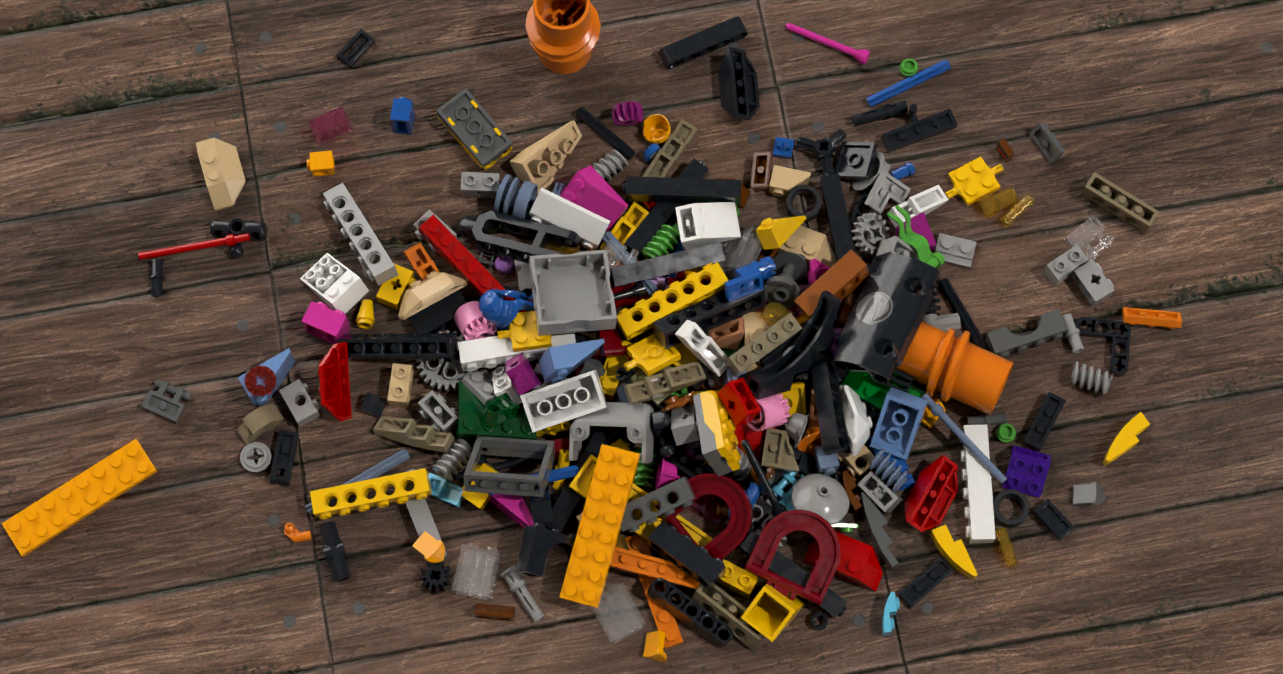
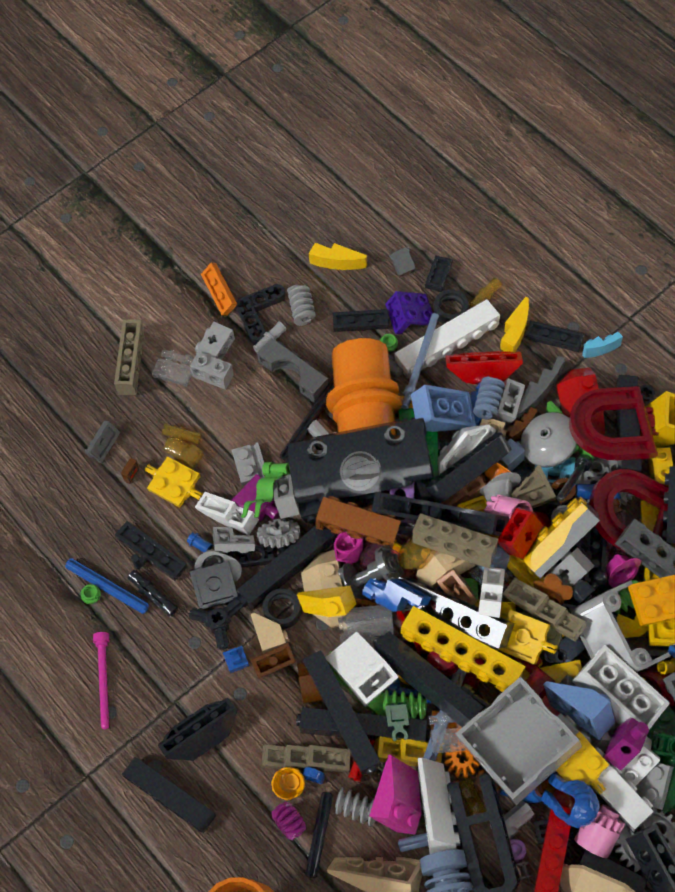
camera: 115 degrees left, 10 degrees down
(651, 228) = (398, 716): none -> dark green plate

